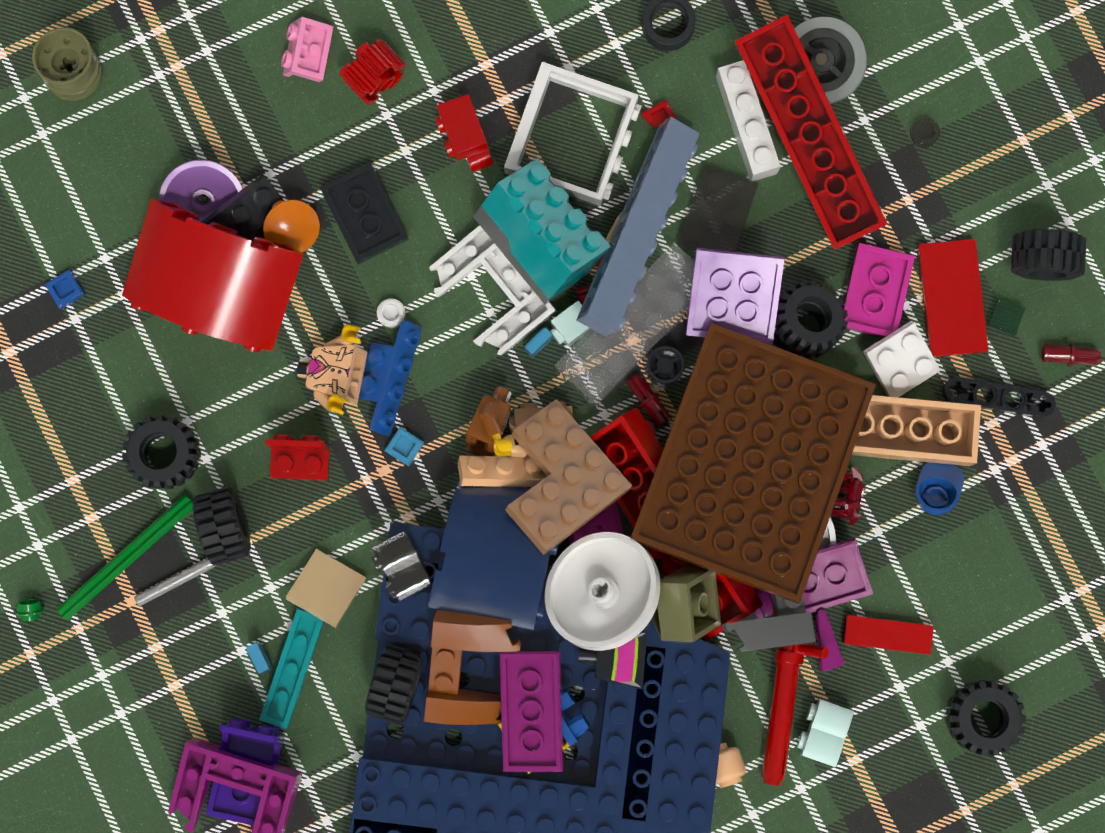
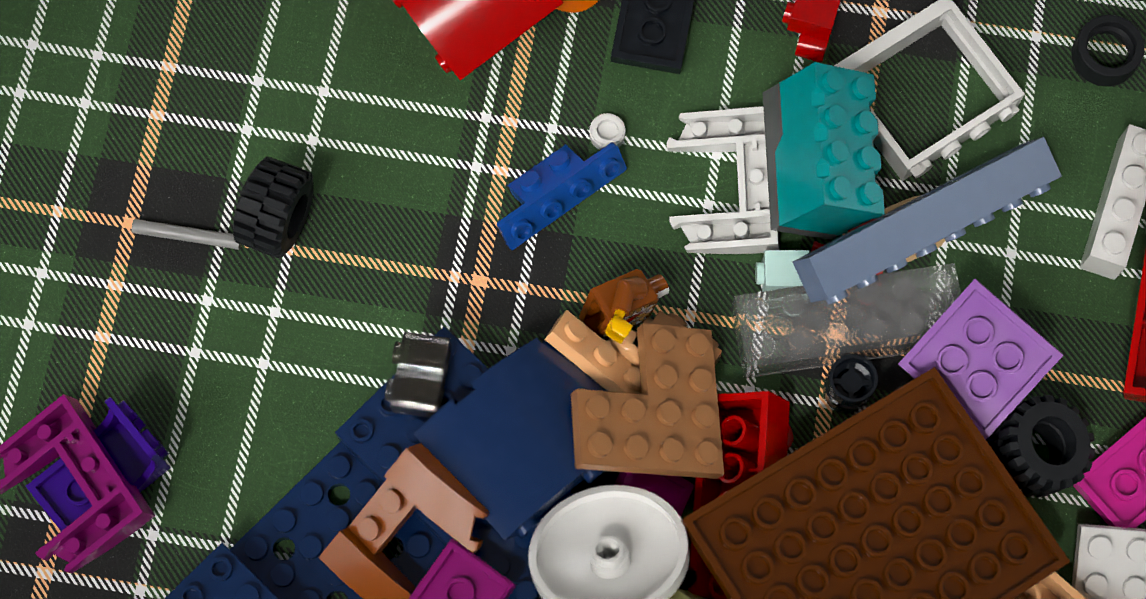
camera: 35 degrees right, 10 degrees down
(29, 609) = (24, 155): green plate -> none
(125, 557) = (153, 175): green axle -> none
(138, 447) = (266, 72): black tyre -> none
(259, 657) = (206, 369): dark azure tile -> none
(292, 669) = (230, 406): teal plate -> none
(299, 459) = (404, 201): red bracket -> none
(325, 588) = (328, 350): tan tile -> none
(336, 370) = (509, 142): light nougat torso -> none
(394, 684) = (317, 491): black tyre -> none
(404, 446) = (518, 271): dark azure tile -> none
(538, 342) = (735, 265): dark azure tile -> none
(649, 400) = (807, 407): dark red axle -> none
(658, 114) = (1028, 130): red tile -> none
(717, 211) = (1026, 268): clear smoke plate -> none

